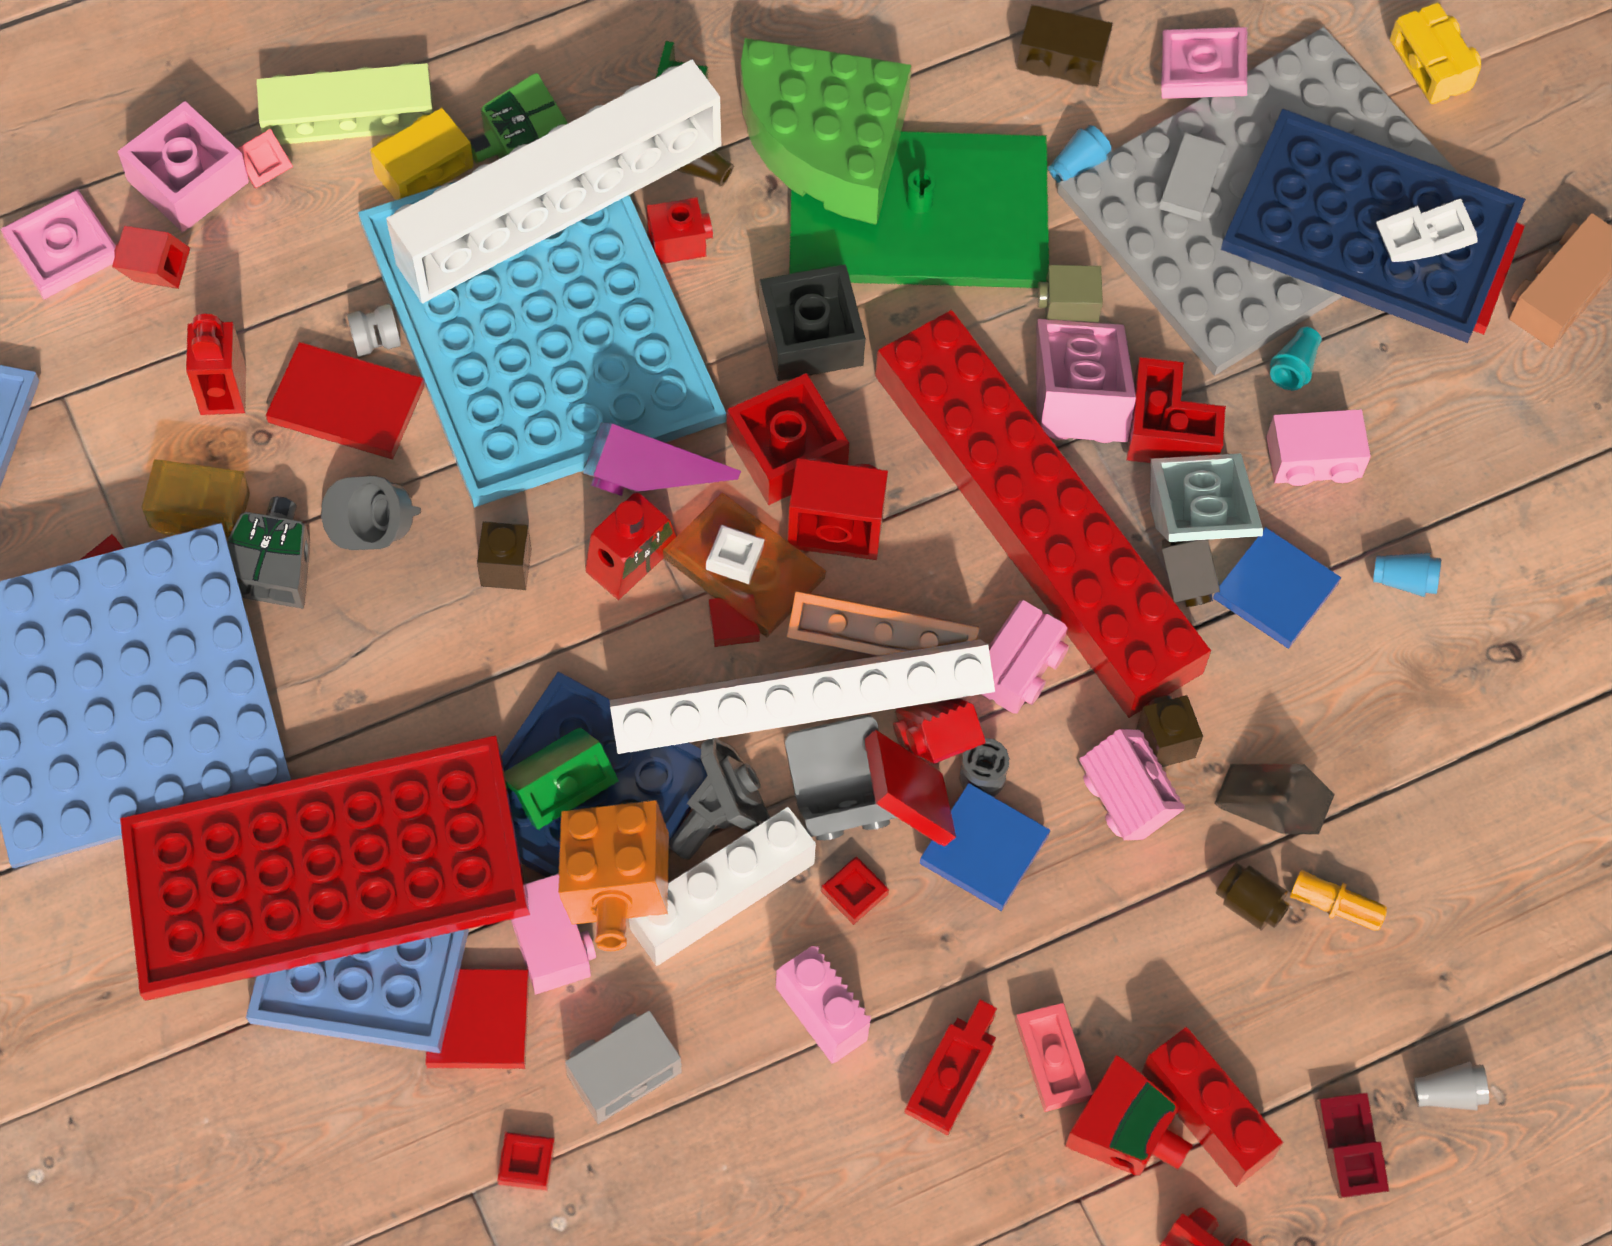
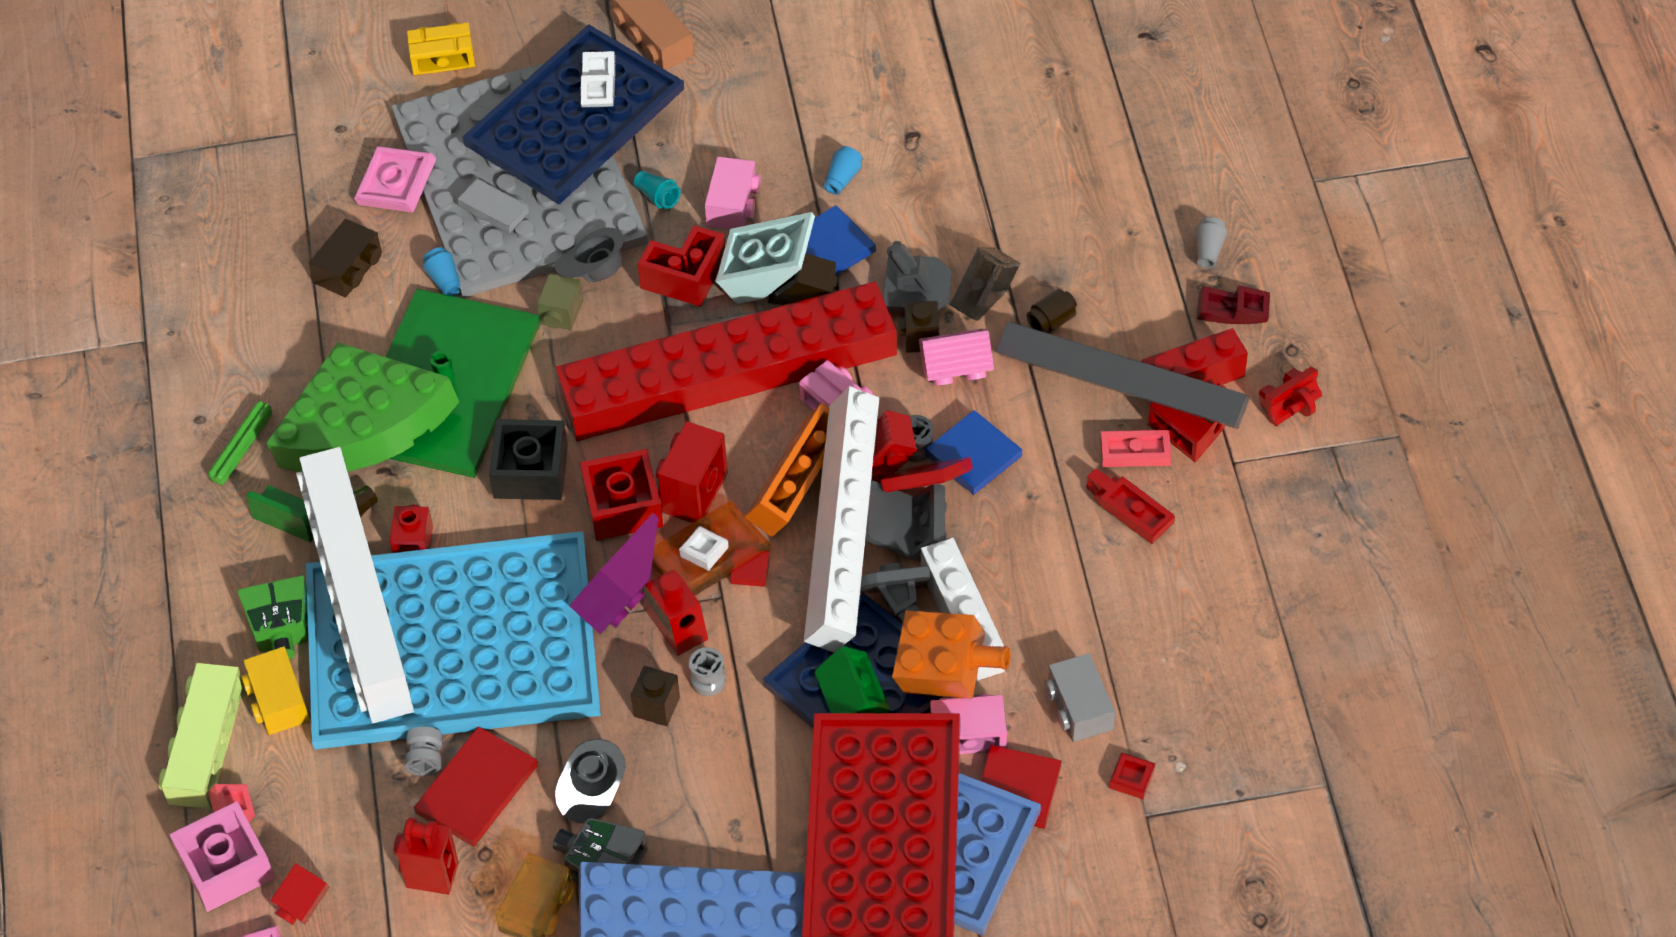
camera: 70 degrees left, 10 degrees down
(557, 617) = (707, 671): none -> light grey wheel
(763, 22) = (239, 443): none -> bright green axle
(823, 1004) = (1066, 567): bright pink brick -> none
(854, 890) = (982, 538): red tile -> none
(1084, 381) = (631, 309): bright pink slope -> none
(1147, 310) = (594, 257): none -> dark grey piece
(1151, 1011) = (1123, 375): none -> dark grey tile
(1243, 708) = (914, 279): none -> dark grey piece
(1338, 901) = (1065, 269): light orange axle -> none

